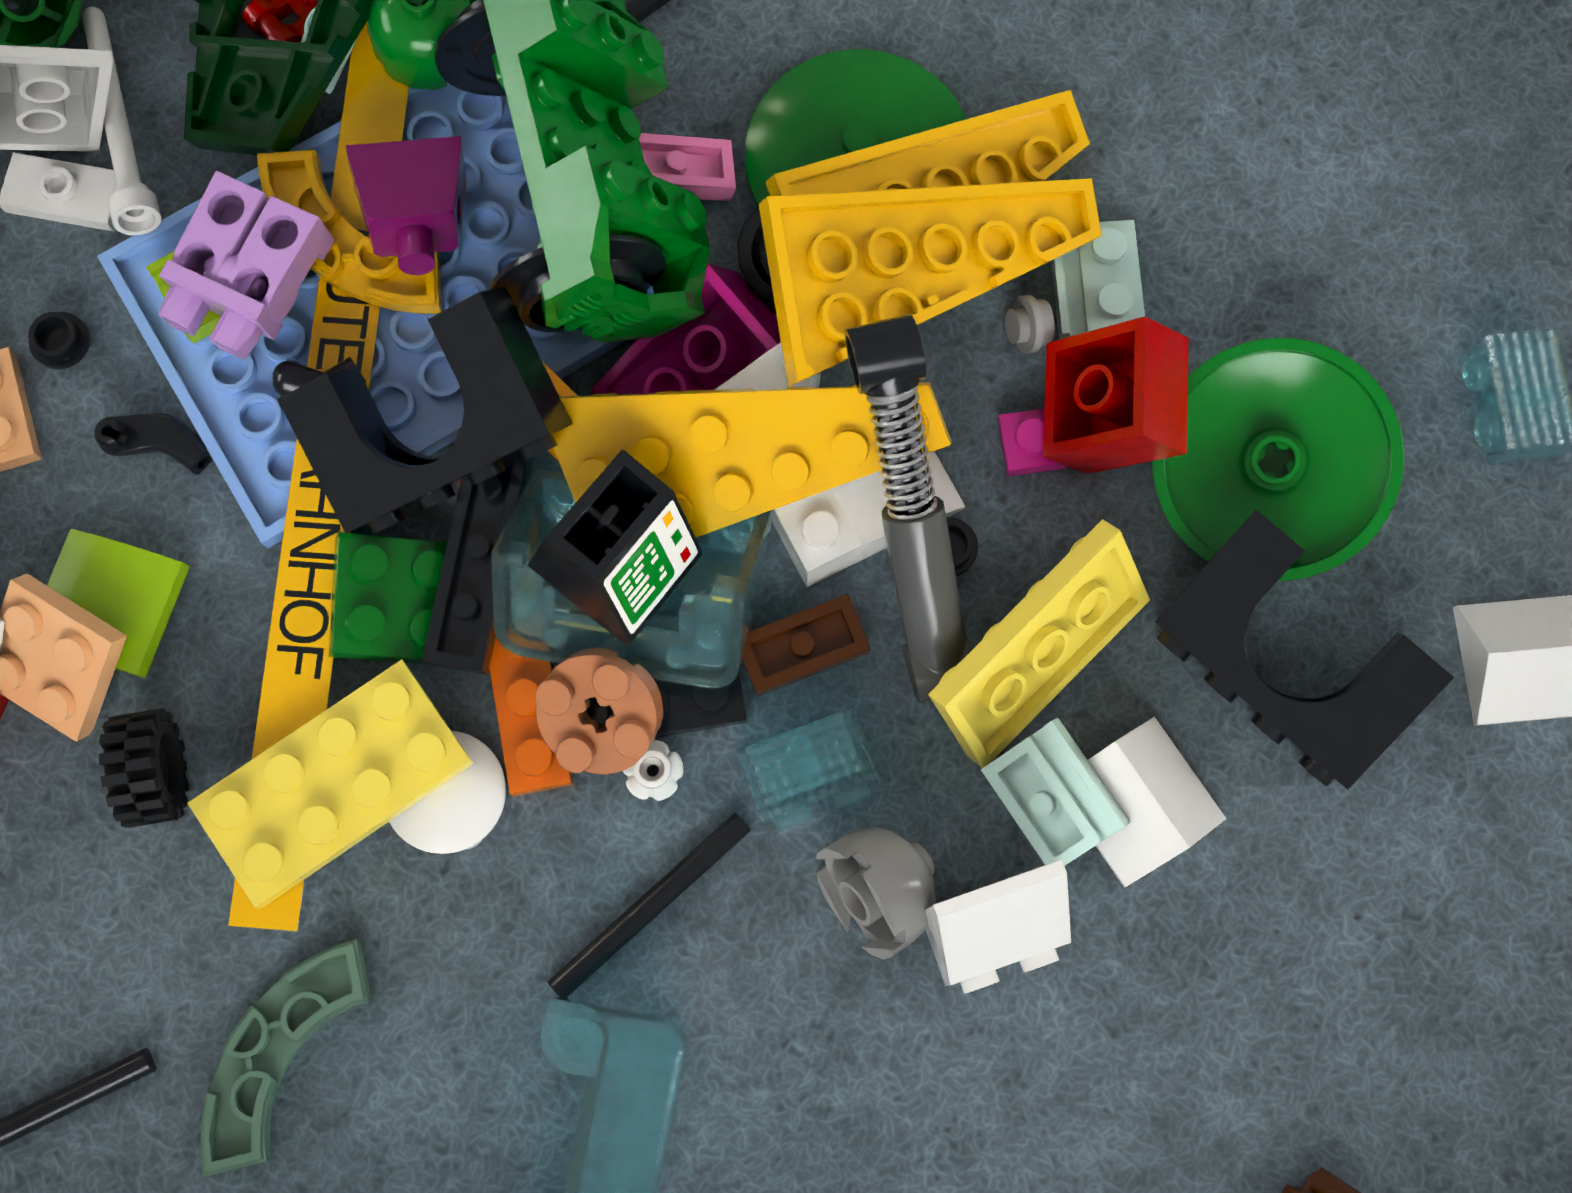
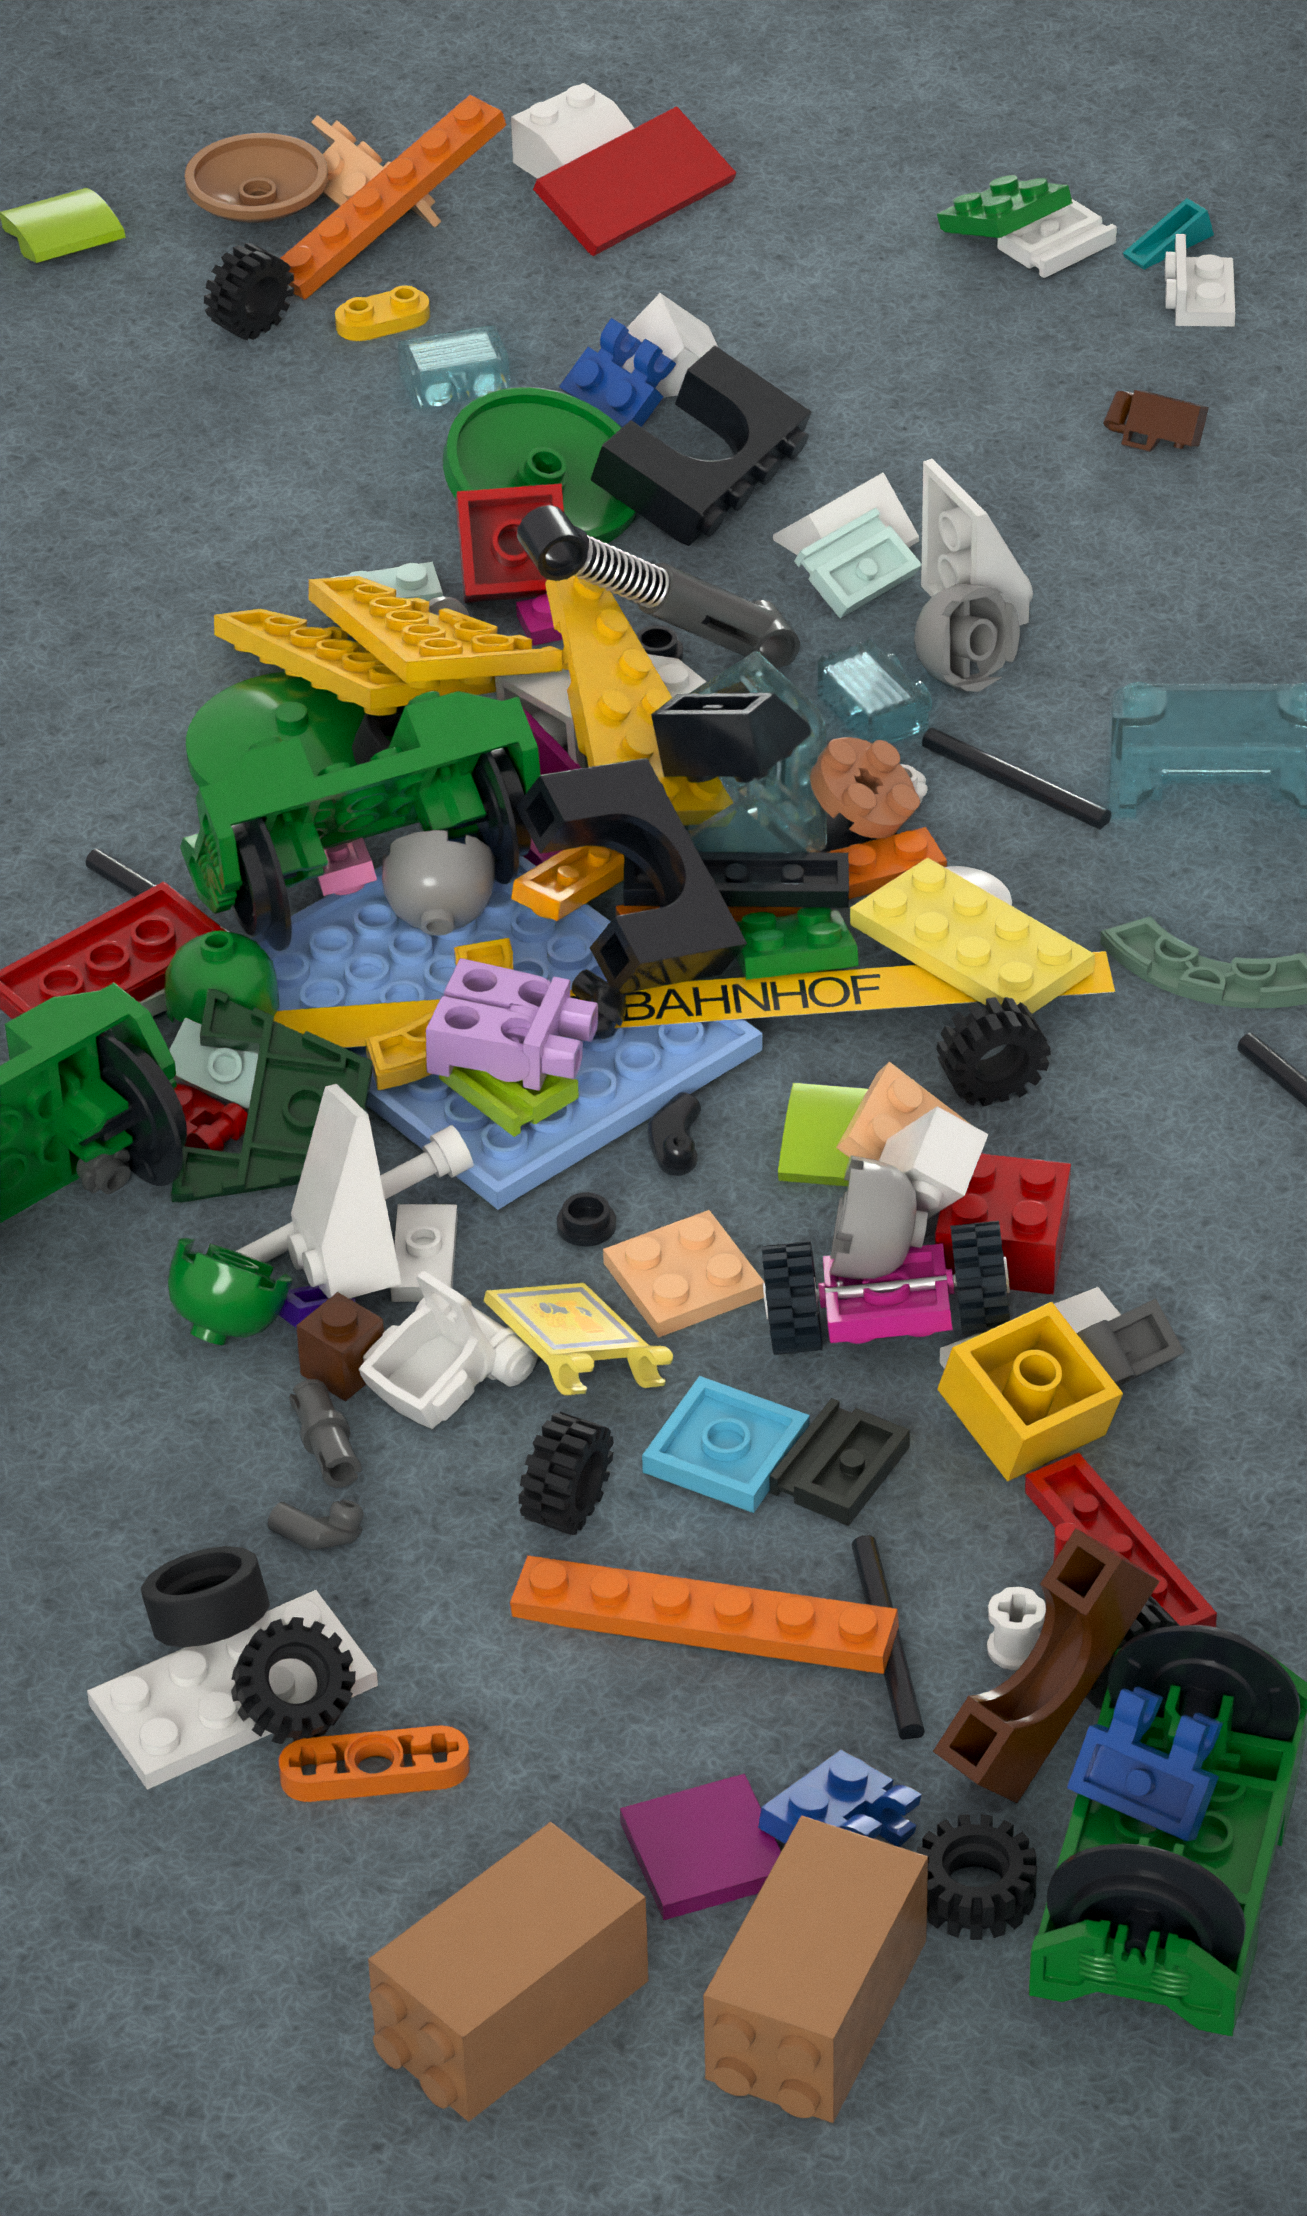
camera: 100 degrees left, 35 degrees down
(411, 197) = (414, 948): magenta torso -> none
(498, 227) = (438, 881): none -> light grey cylinder
(1041, 644) = (737, 567): light yellow plate -> none
(1452, 572) = (612, 389): none -> blue plate

